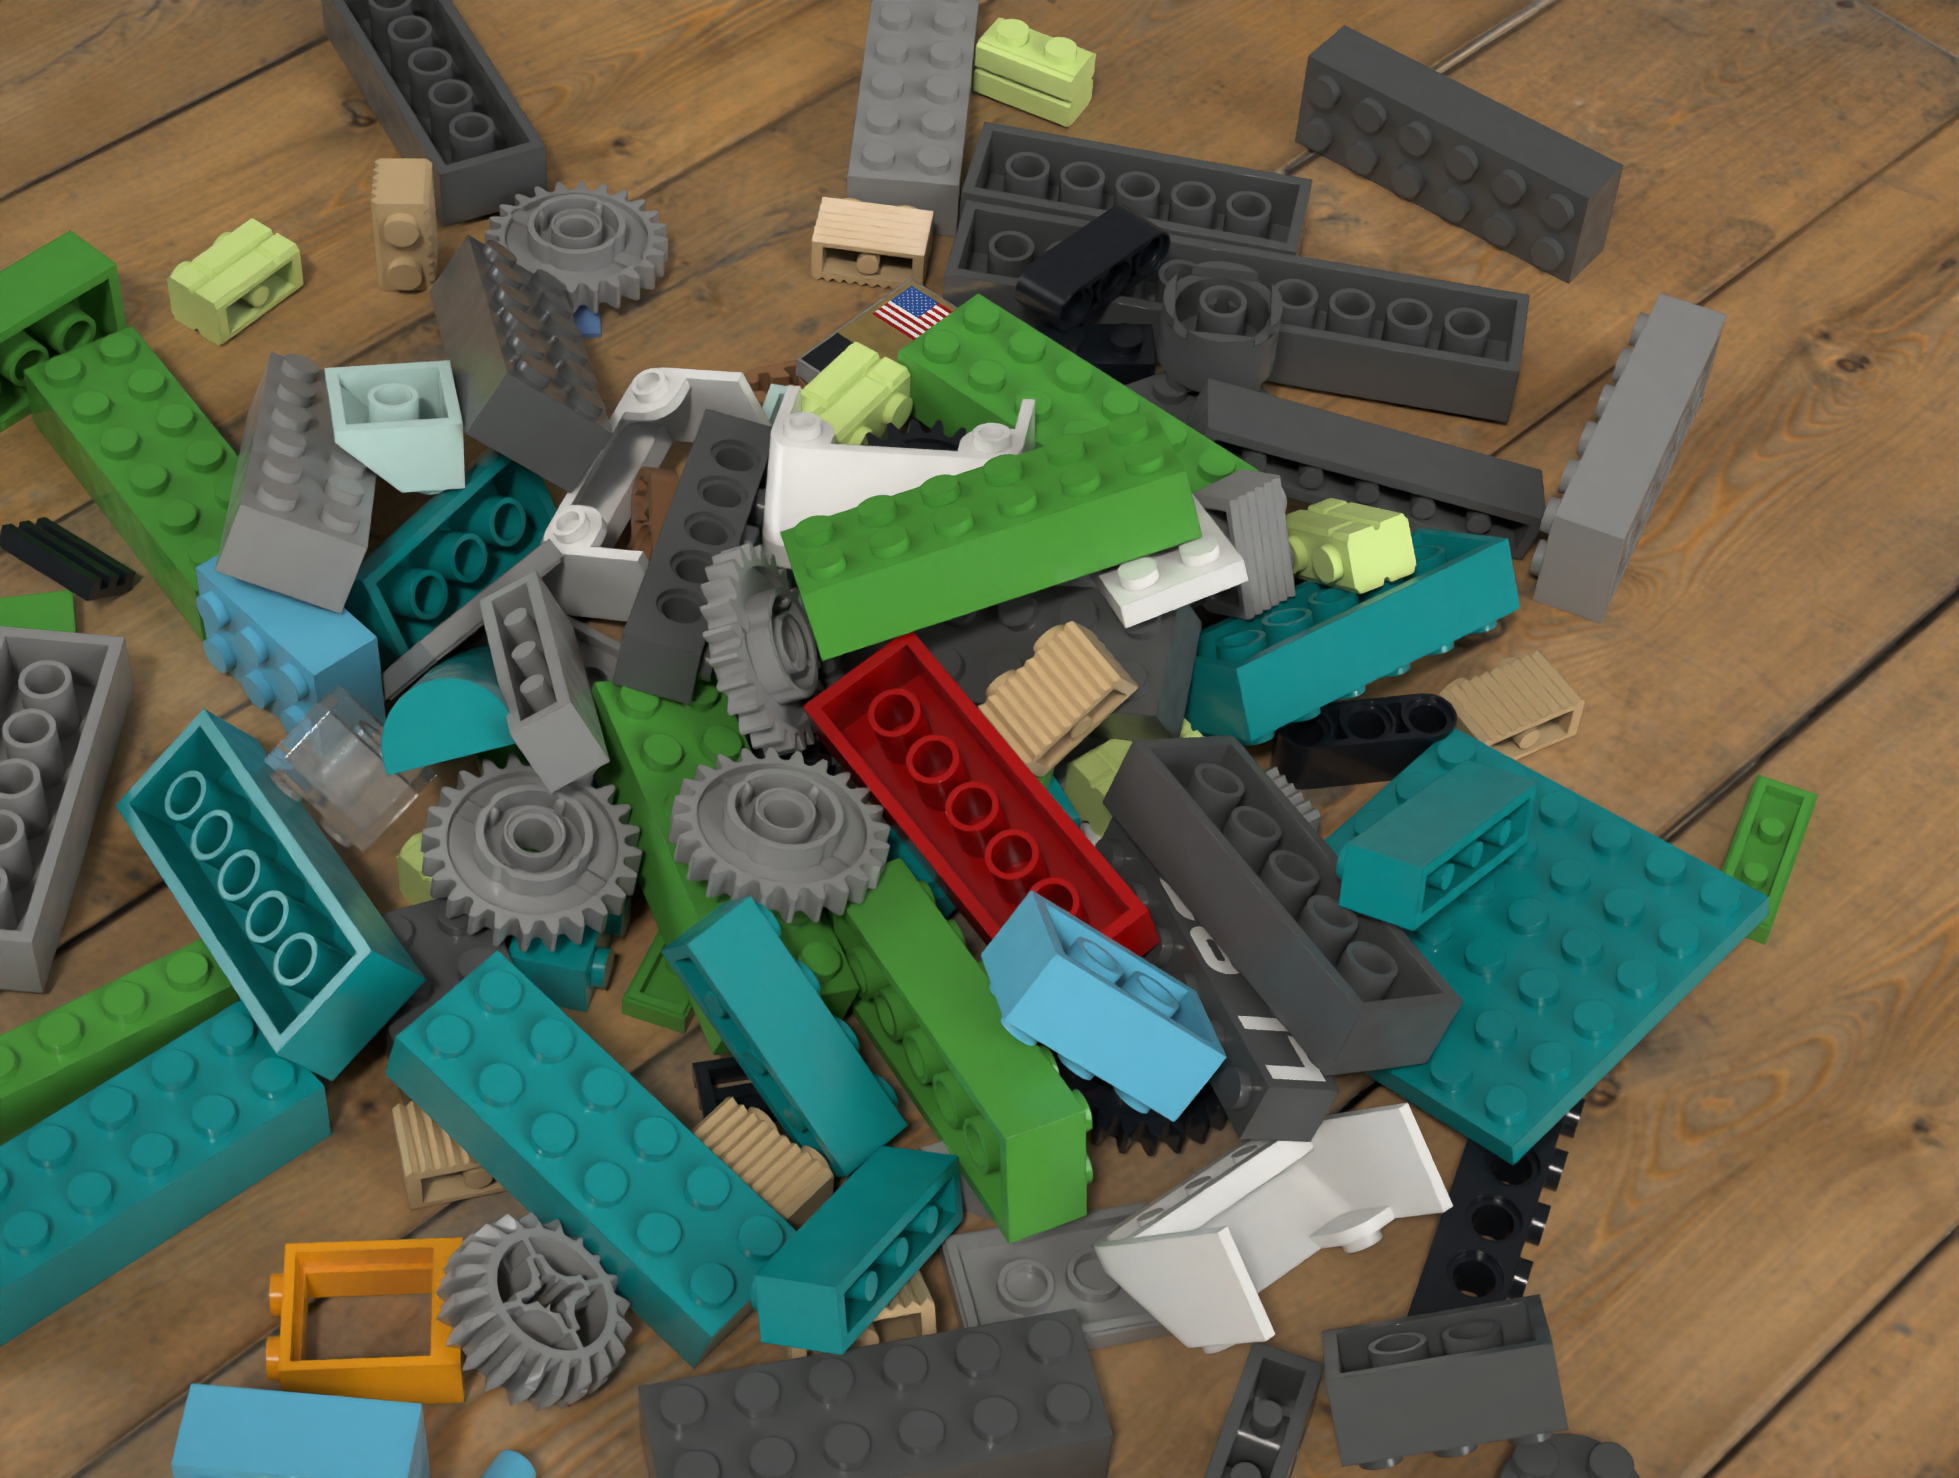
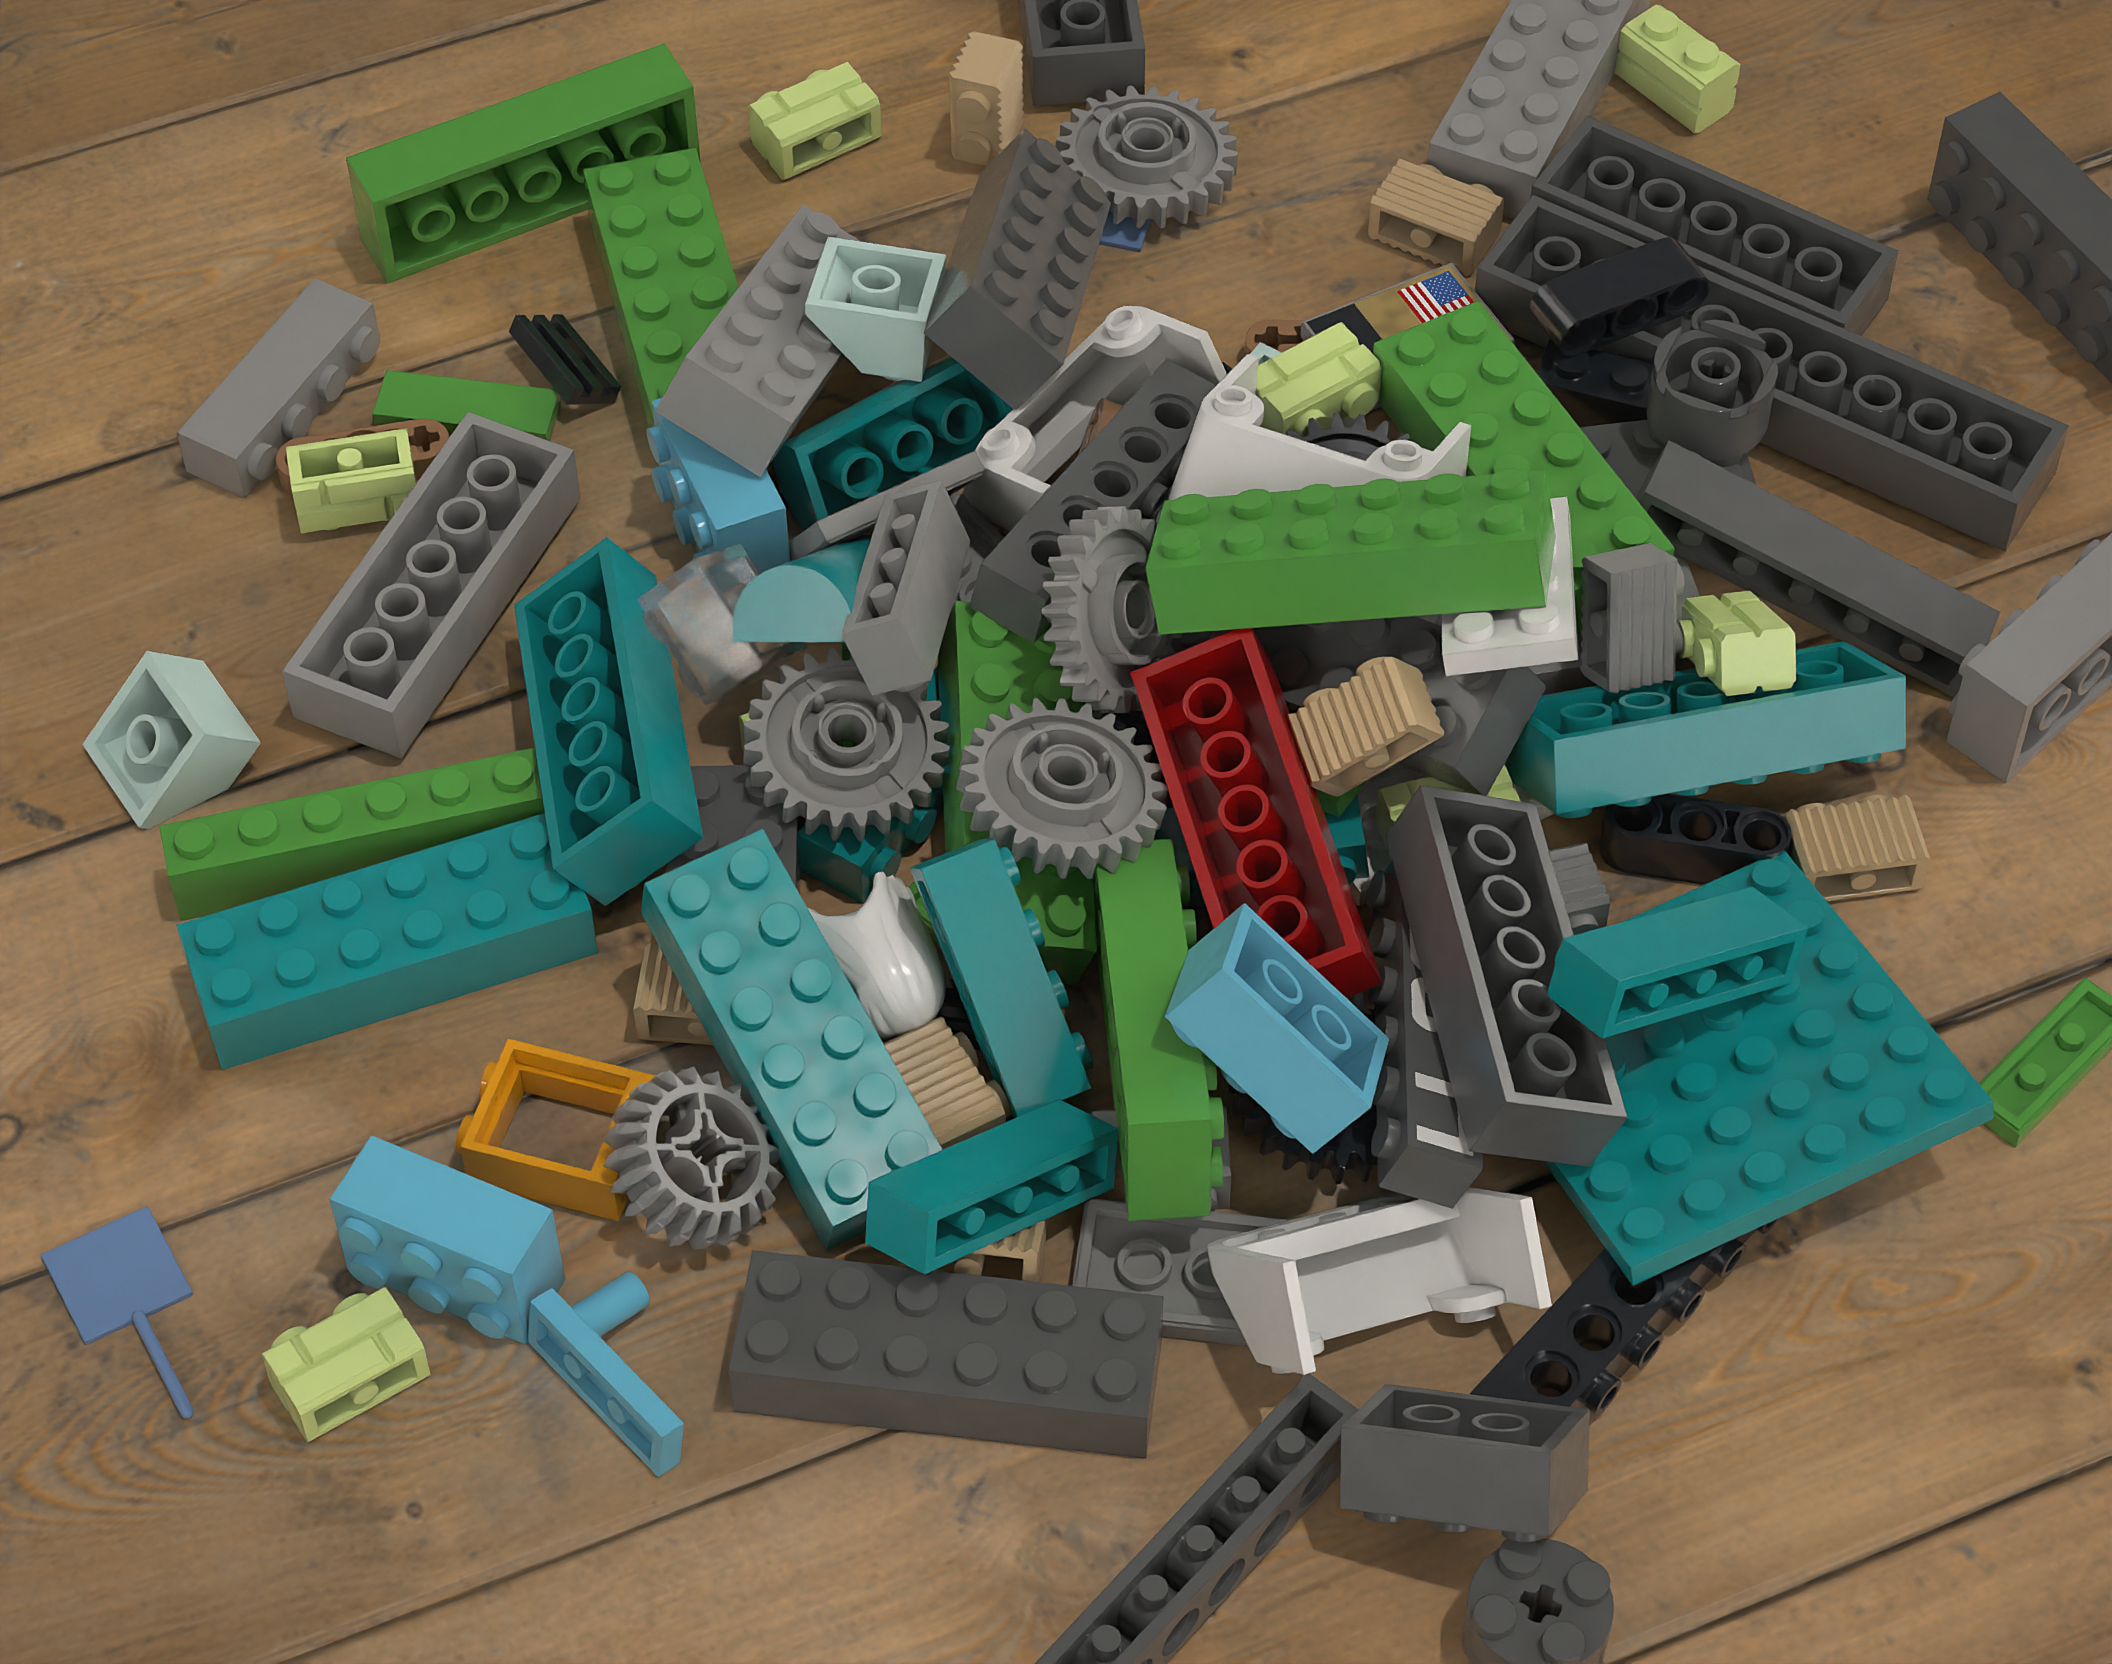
camera: 25 degrees right, 5 degrees up
(661, 1048) = (888, 958): none -> white hair

